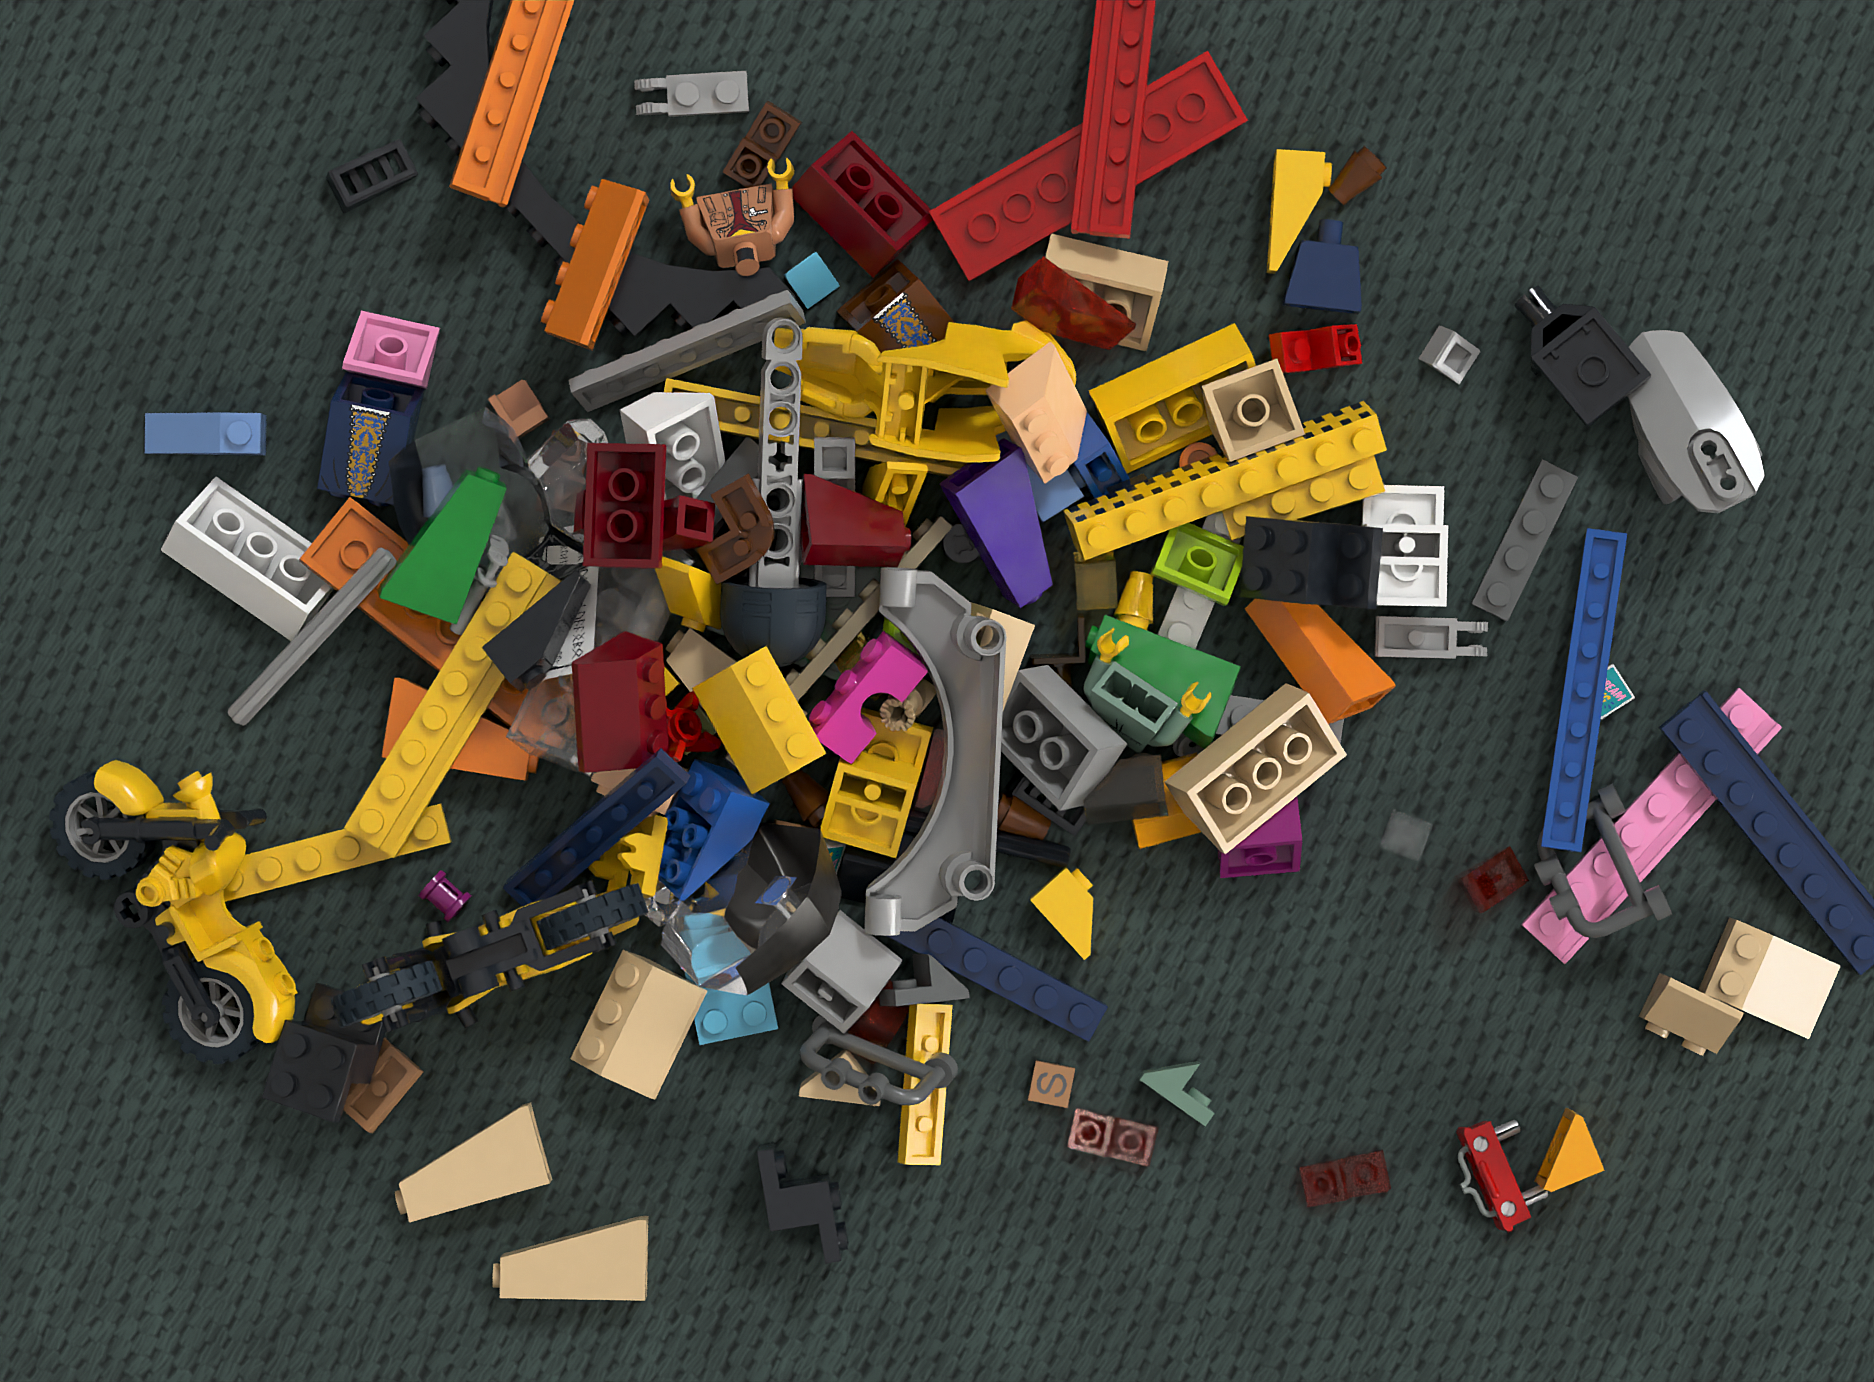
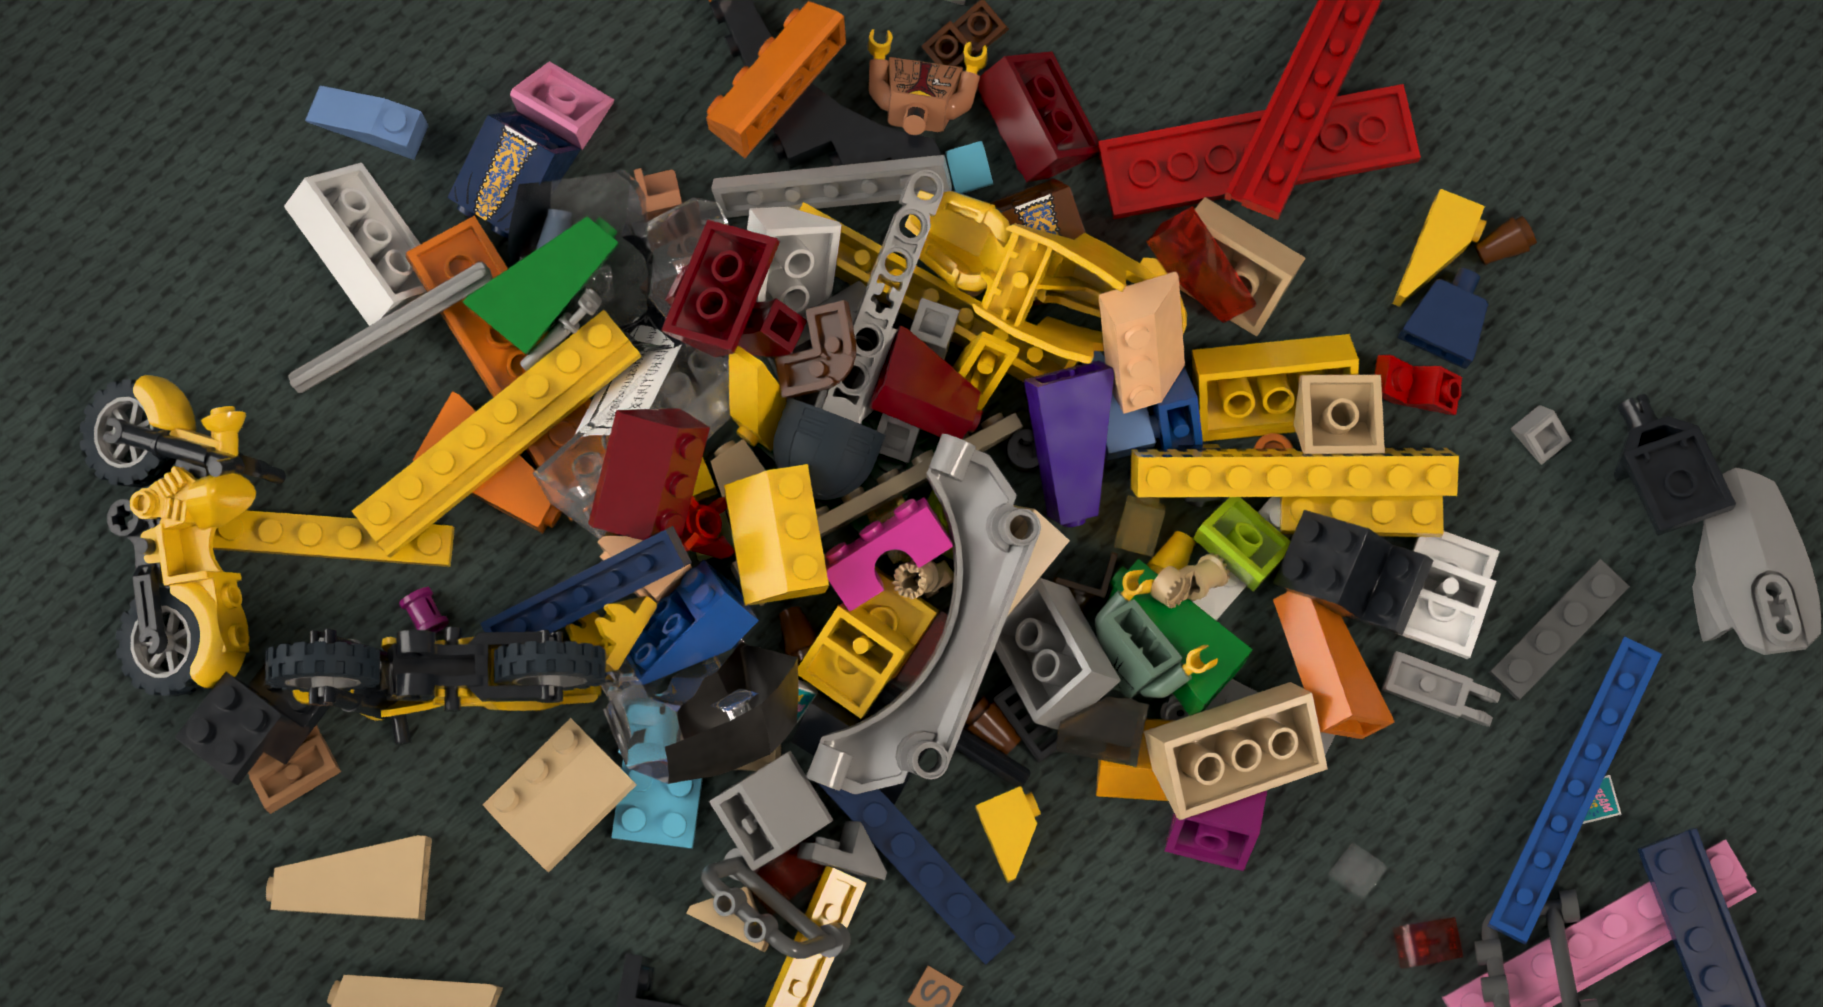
camera: 25 degrees right, 10 degrees down
(535, 638) = (596, 389): black slope -> none
(1161, 622) = (1190, 582): none -> tan connector

